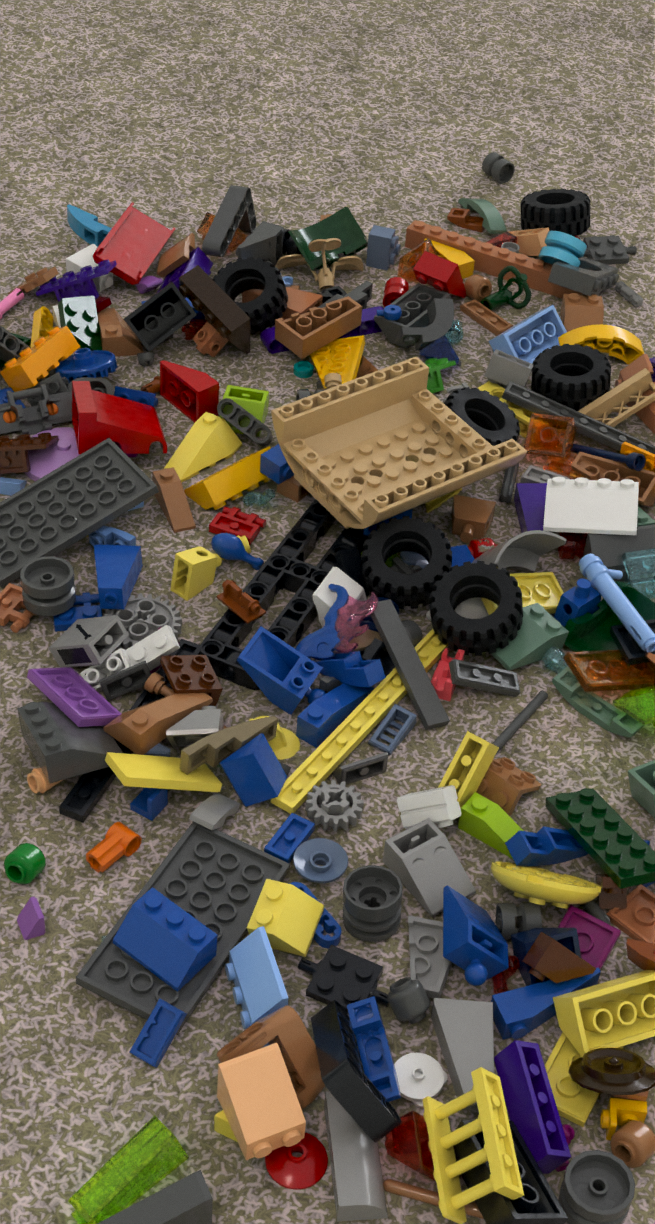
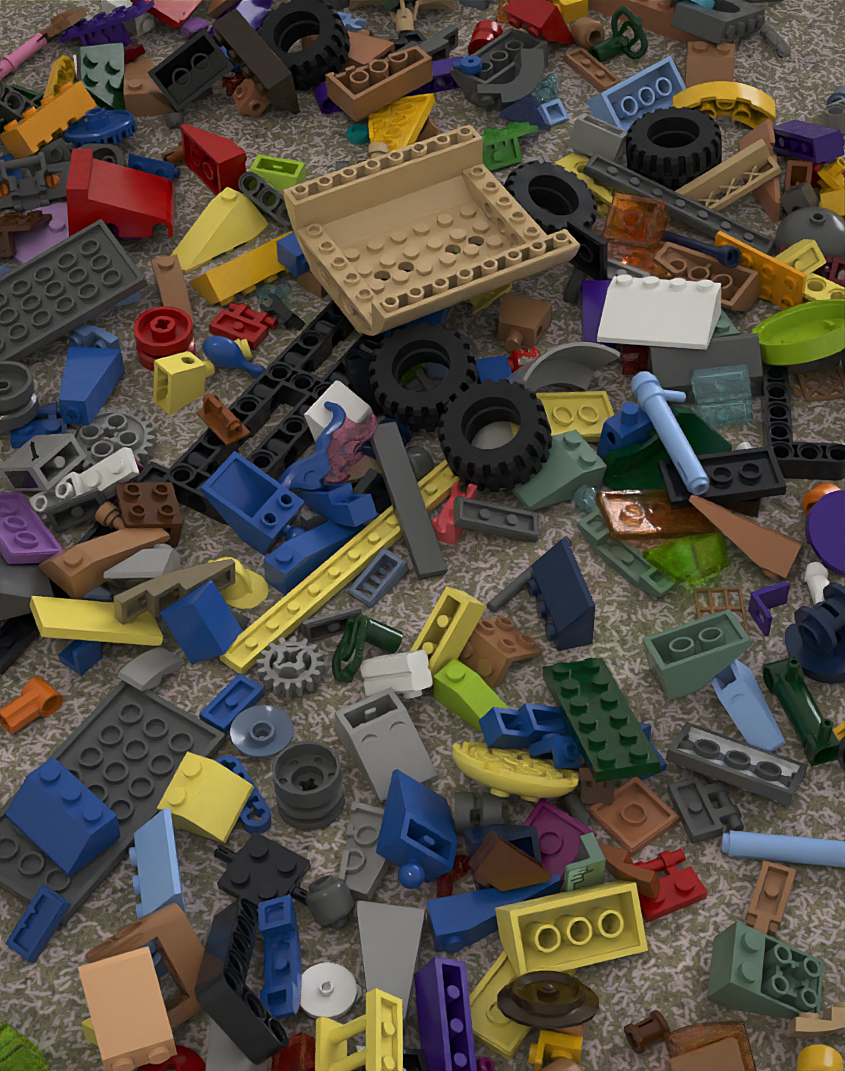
camera: 10 degrees right, 5 degrees up
(172, 533) = (162, 333): none -> red wheel
(272, 517) = (286, 316): none -> black plate
(392, 771) = (362, 630): none -> dark green piece
(463, 350) = (555, 112): none -> light blue slope
(527, 468) = (593, 250): none -> black slope
(554, 739) = (562, 598): none -> dark blue slope
(576, 862) = (560, 749): none -> blue bracket
(623, 957) = (589, 868): none -> sand green panel

